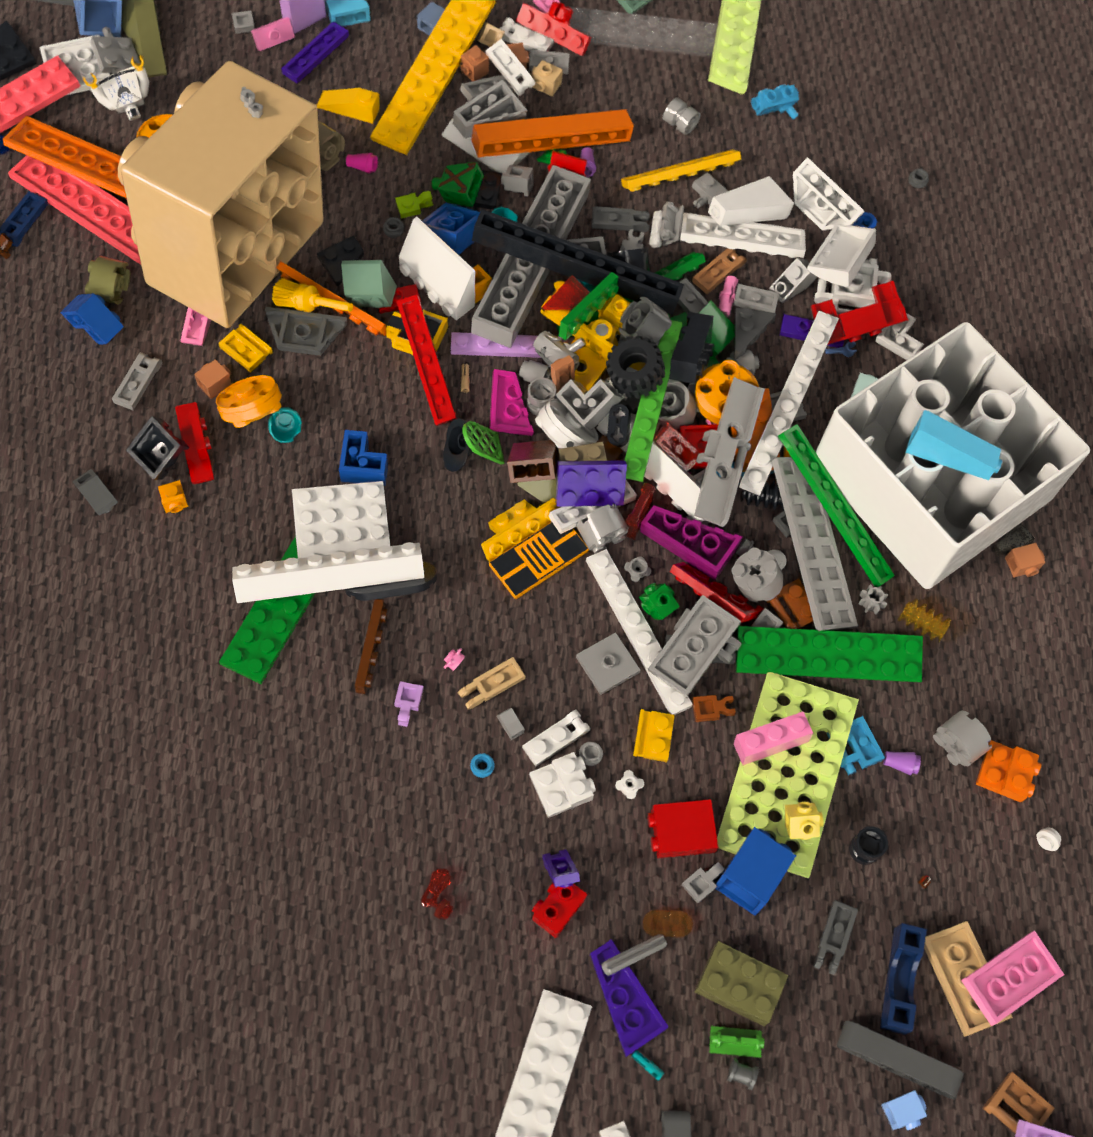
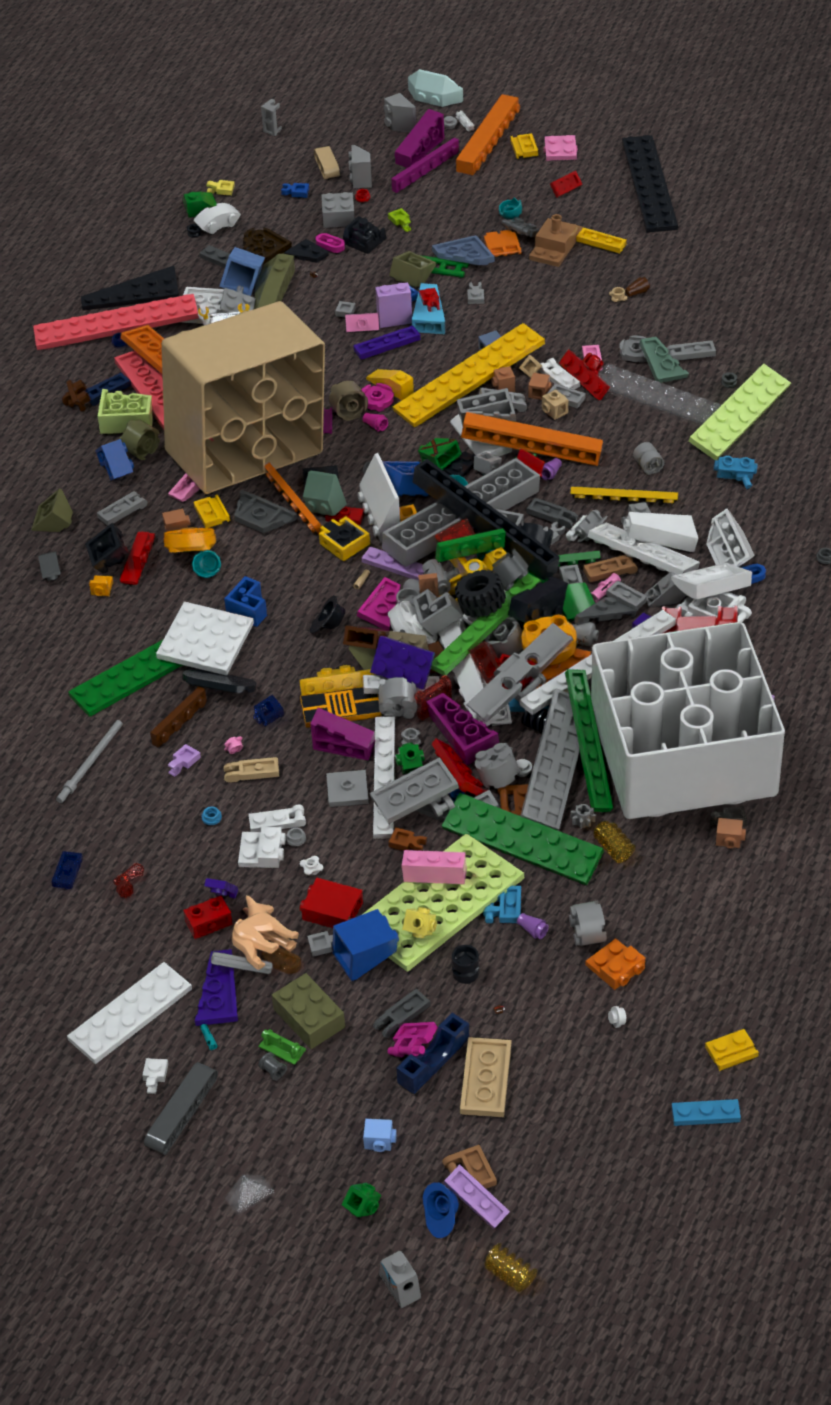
camera: 35 degrees right, 20 degrees down
(58, 418) = (53, 514): none -> olive slope
(65, 246) = (119, 409): none -> yellowish green wedge
(248, 98) = (276, 327): light grey piece -> none
(296, 793) = (70, 786): none -> light grey bar
(303, 297) = (270, 489): yellow piece -> none
(327, 572) = (176, 657): white brick -> none
(355, 125) = (385, 397): none -> dark pink plate
(361, 913) = (67, 870): none -> clear blue plate
(411, 205) = (397, 456): lime plate -> none
(426, 360) = (334, 552): red plate -> none
(473, 593) = (268, 705): none -> clear blue brick
(476, 448) = (346, 607): bright green window -> none
(510, 67) = (526, 387): white plate -> none
(510, 723) = (249, 799): light grey piece -> none
(570, 602) = (341, 736): none -> magenta wedge
(624, 425) = (450, 632): black beam -> none
(626, 901) = (257, 930): none -> light nougat animal
(654, 735) = (351, 843): yellow plate -> none
(871, 961) = (412, 1035): none -> dark pink plate
(900, 1059) = (398, 1105): dark grey beam -> none
(953, 447) = (661, 687): medium azure slope -> none
(1012, 978) = (520, 1085): bright pink plate -> none

